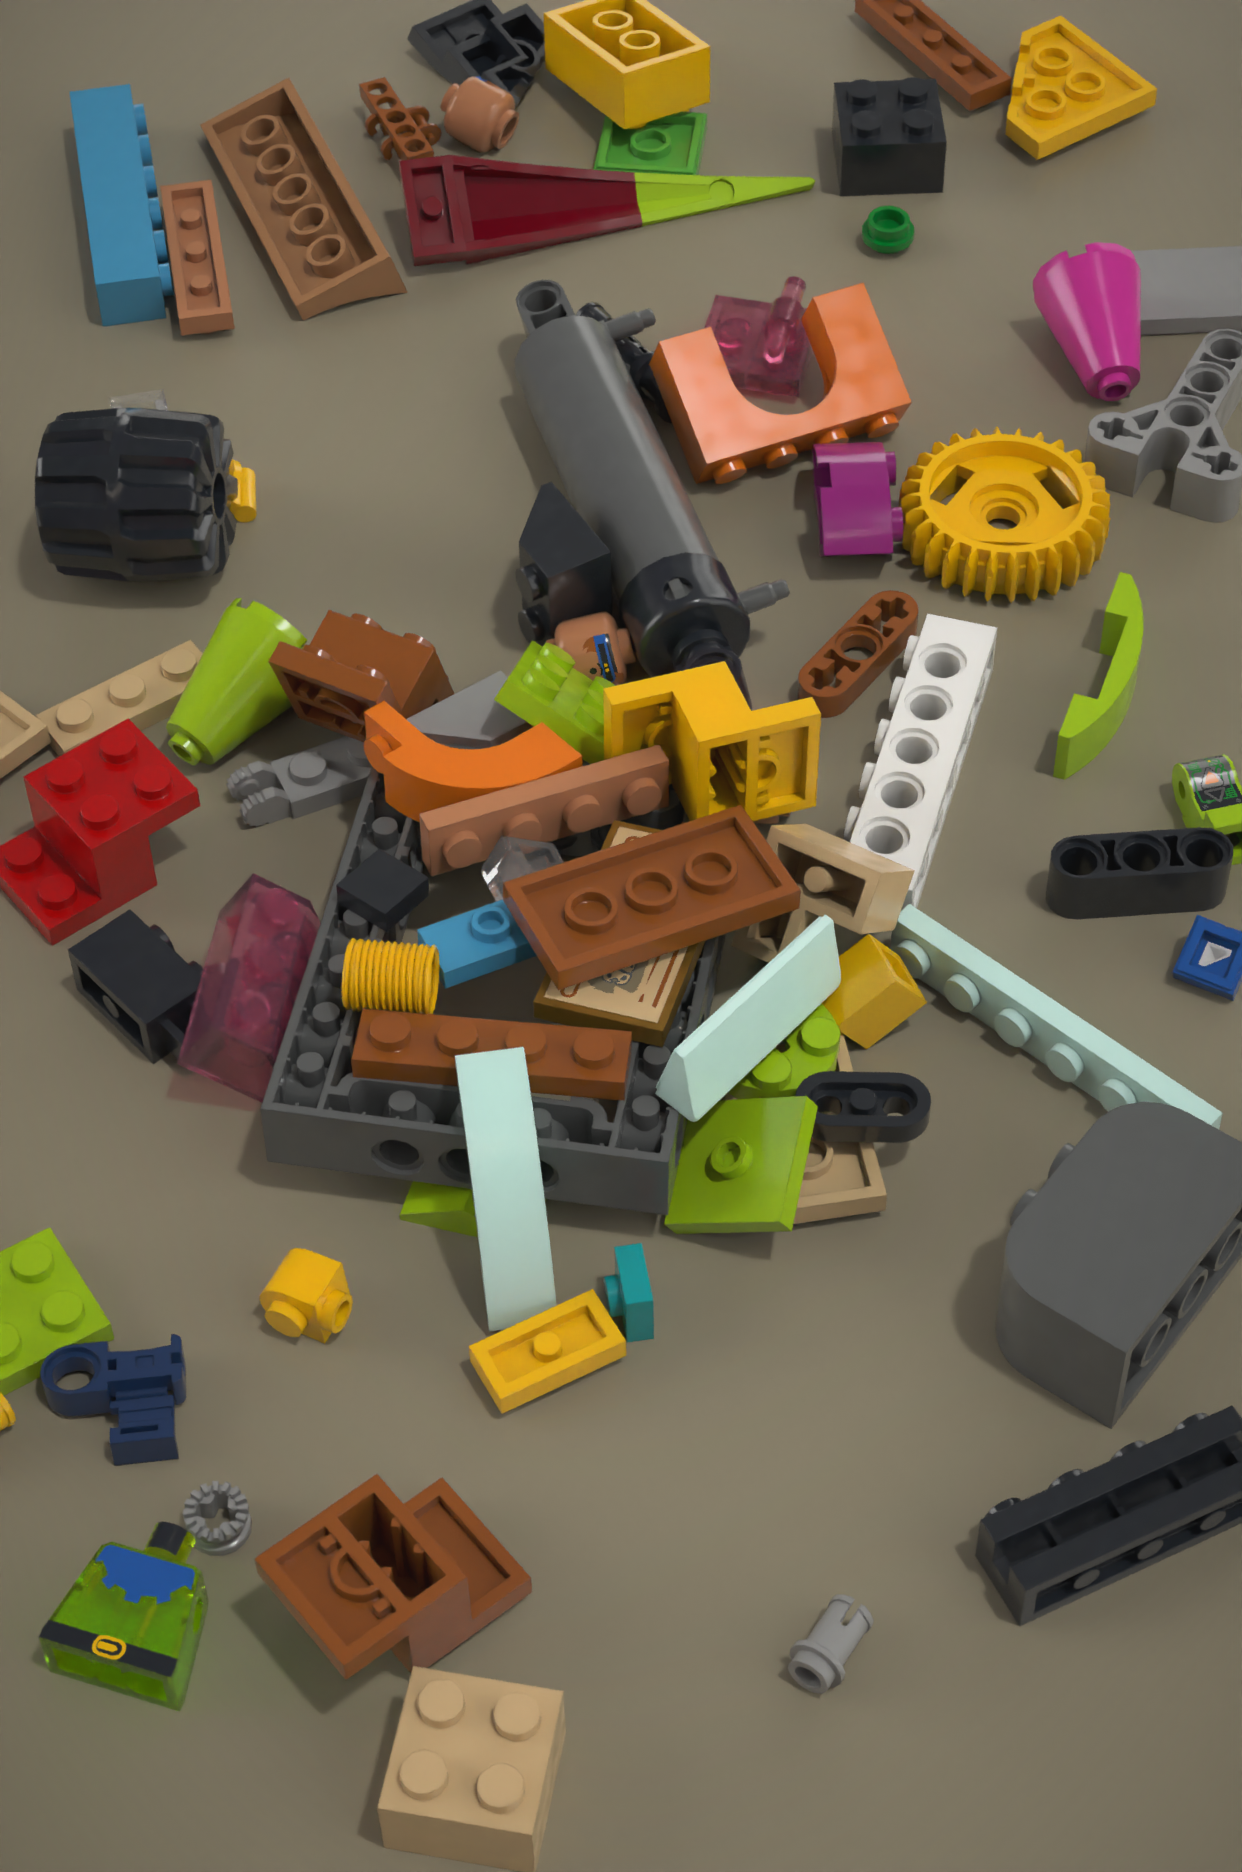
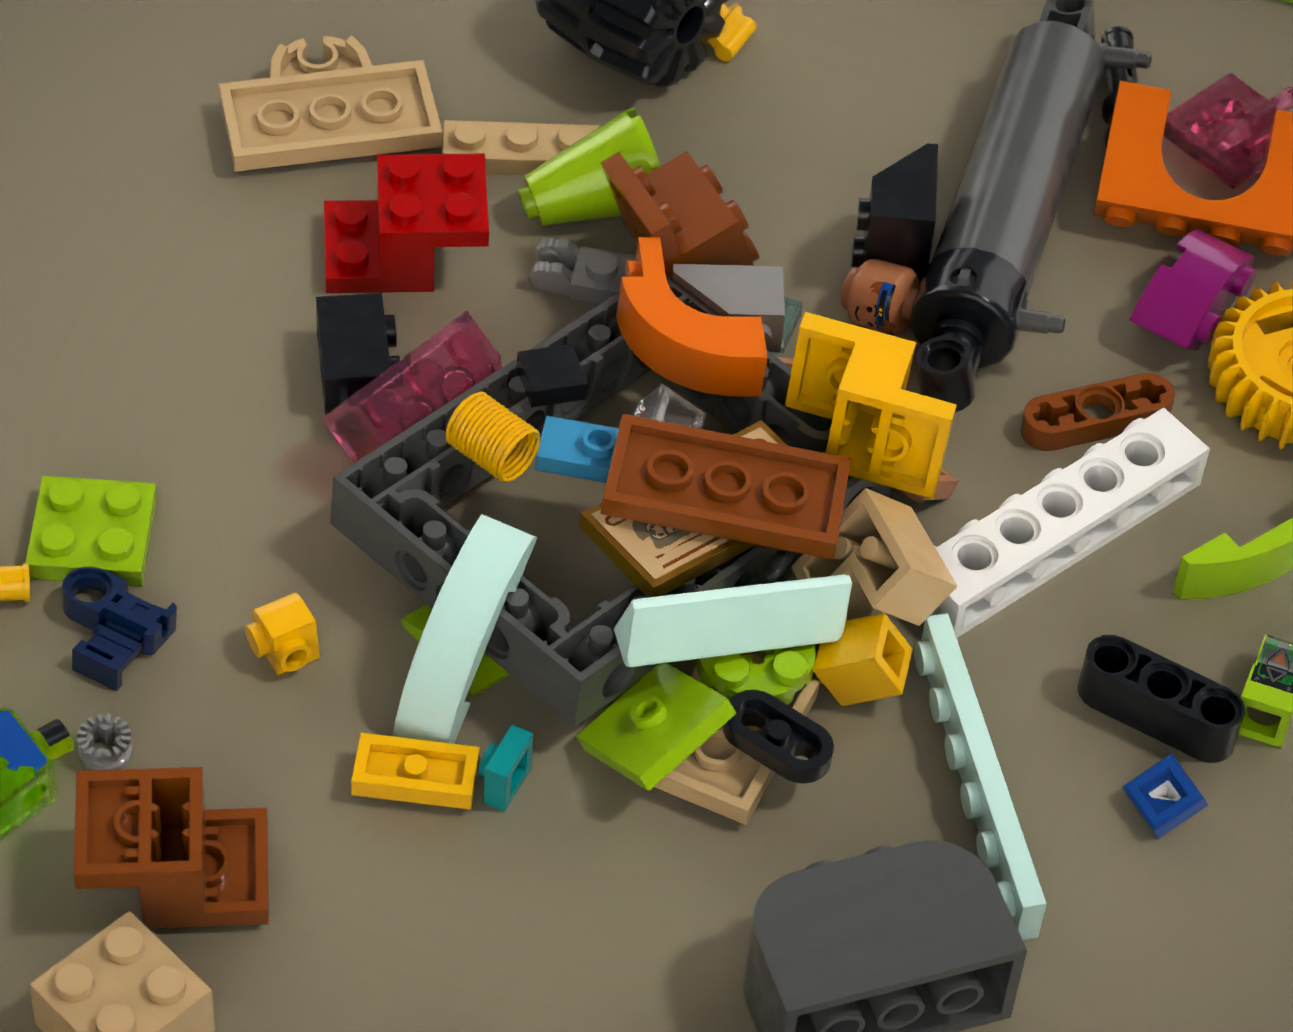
camera: 30 degrees right, 0 degrees up
(545, 808) = (717, 383): nougat plate -> none
(552, 692) = (787, 292): lime plate -> none
(557, 1056) = (559, 558): dark orange plate -> none

